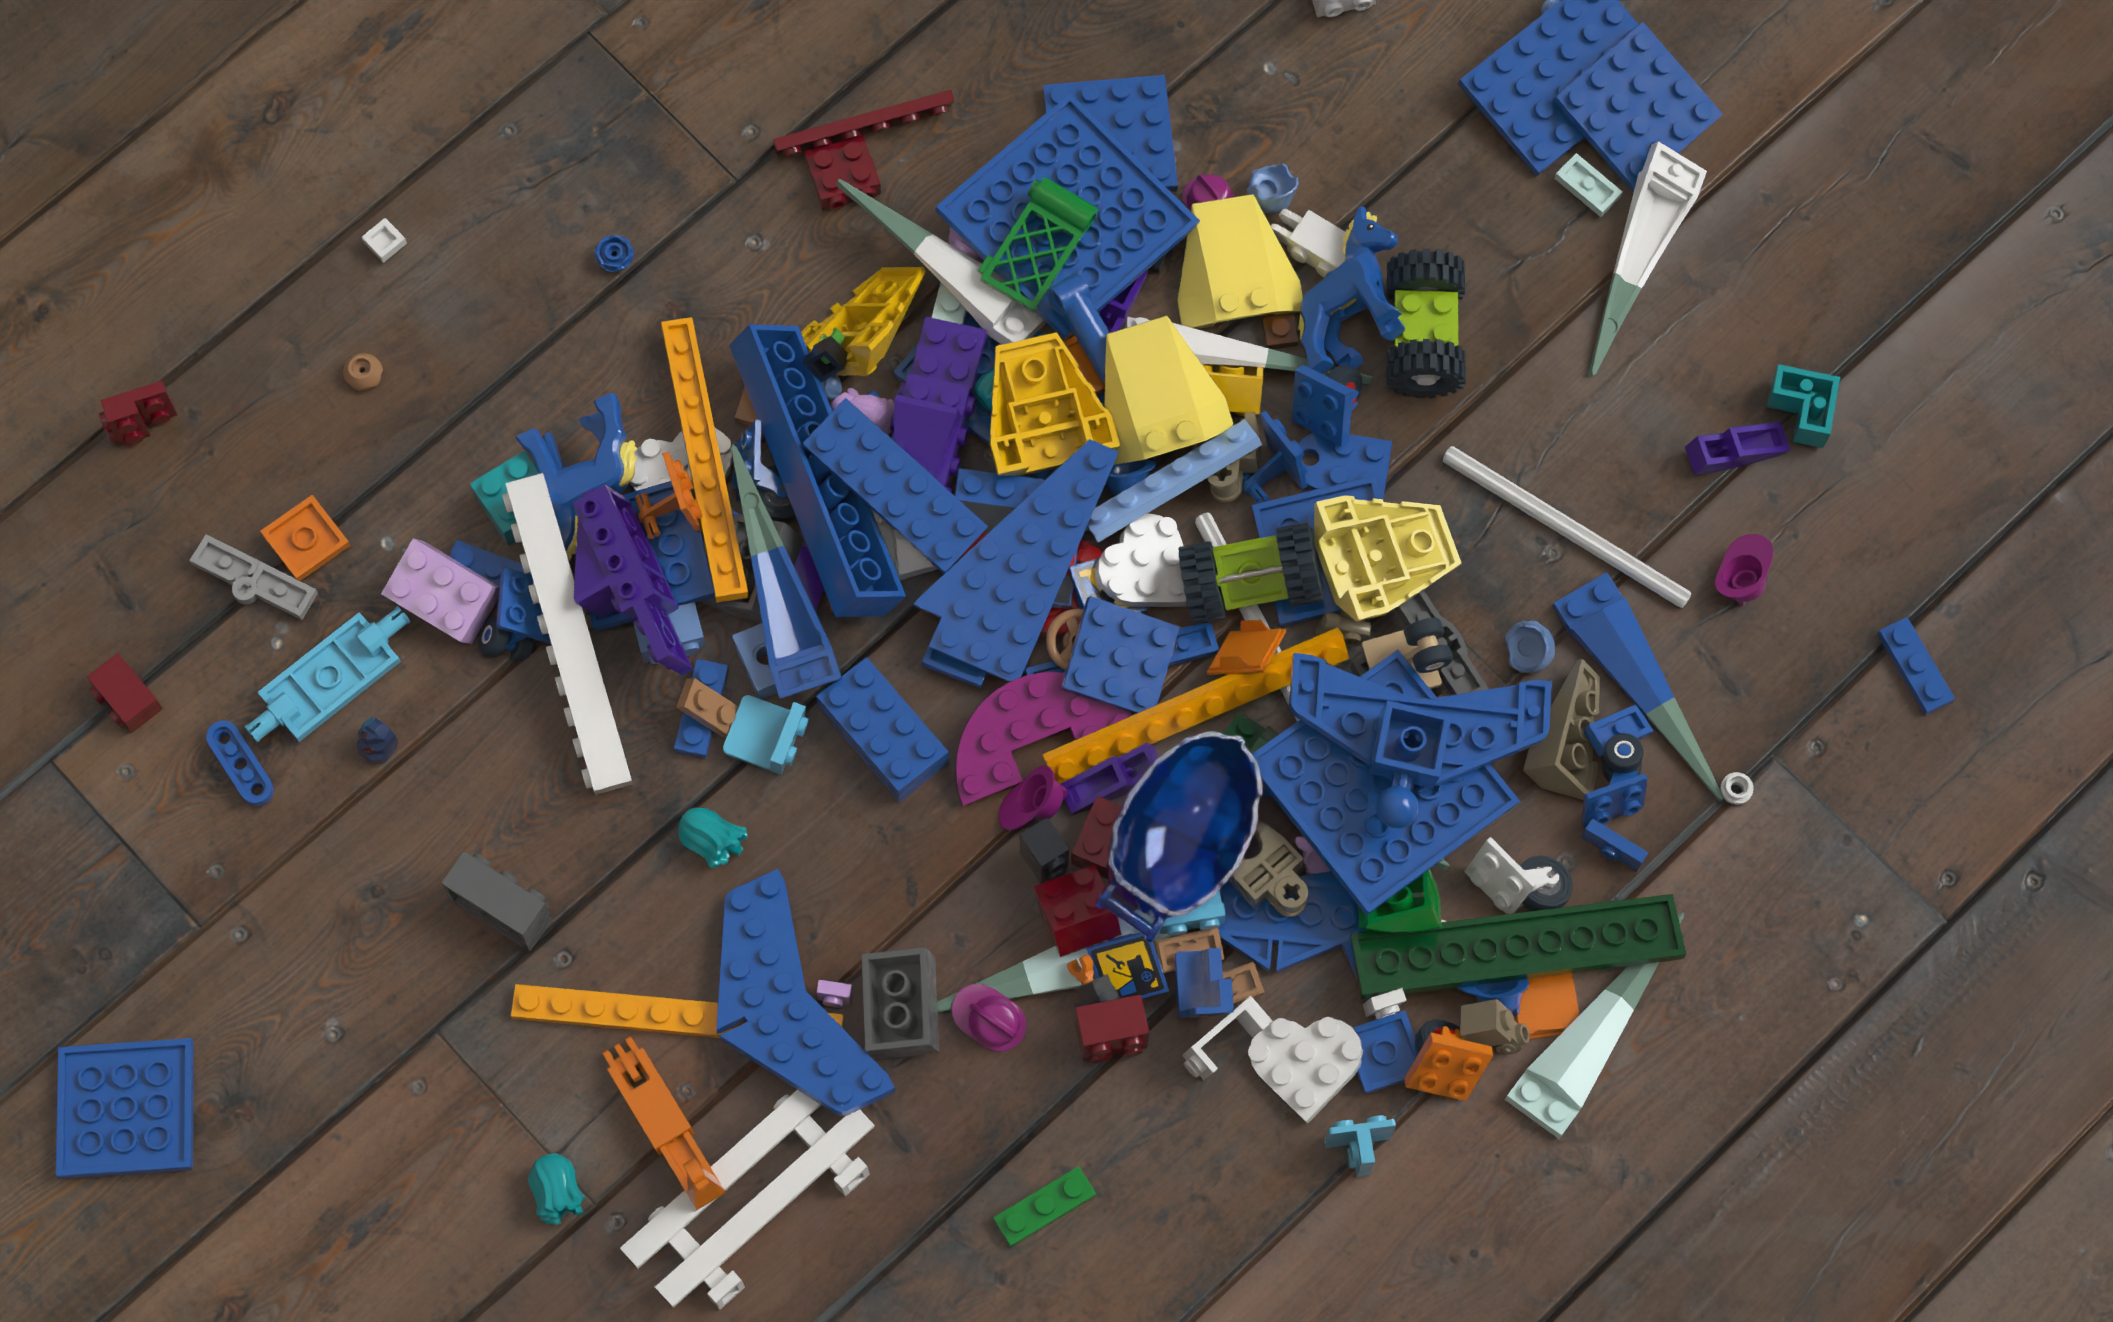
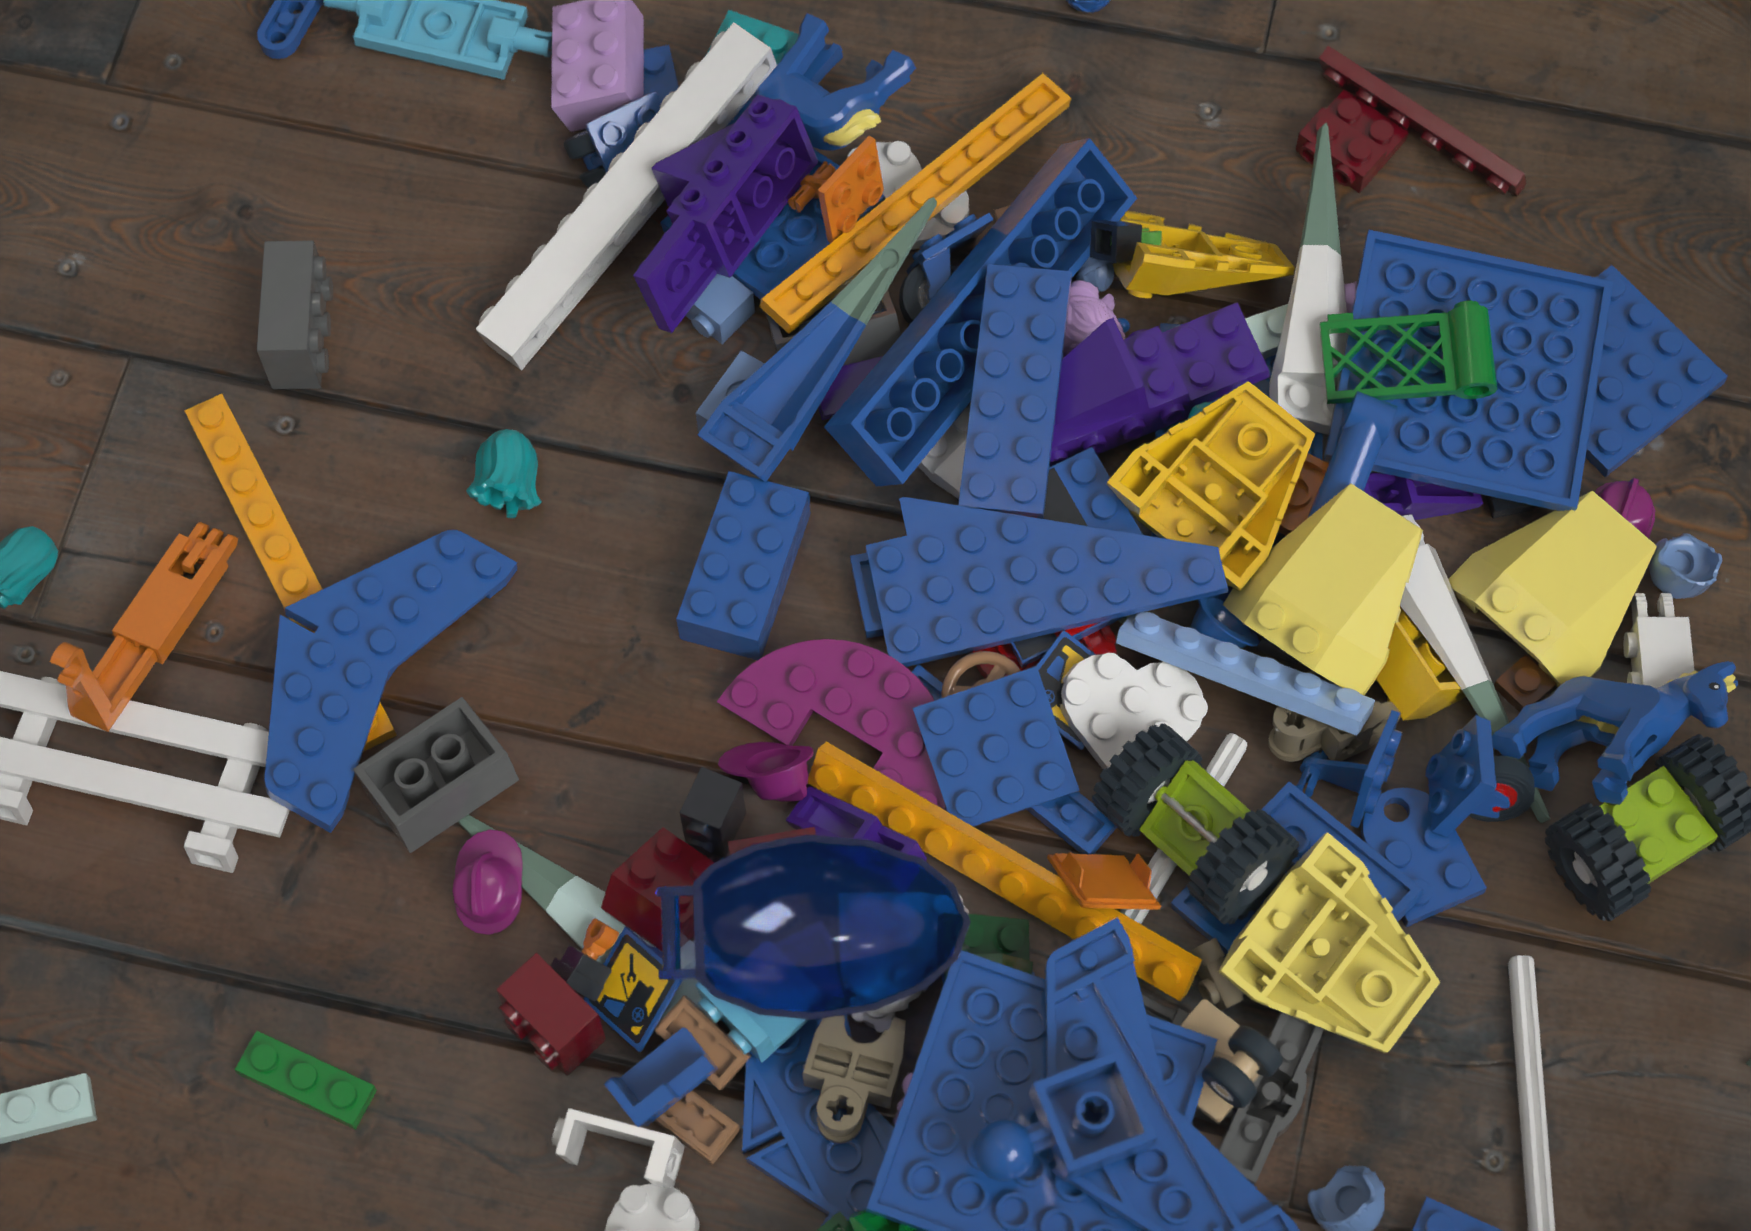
camera: 60 degrees right, 5 degrees down
(376, 741) = (398, 106): dark blue rock -> none
(692, 736) = (648, 380): blue plate -> none
(707, 707) = (645, 379): medium nougat plate -> none
(765, 733) = (659, 455): medium azure bracket -> none
(834, 993) = (408, 702): lavender plate -> none

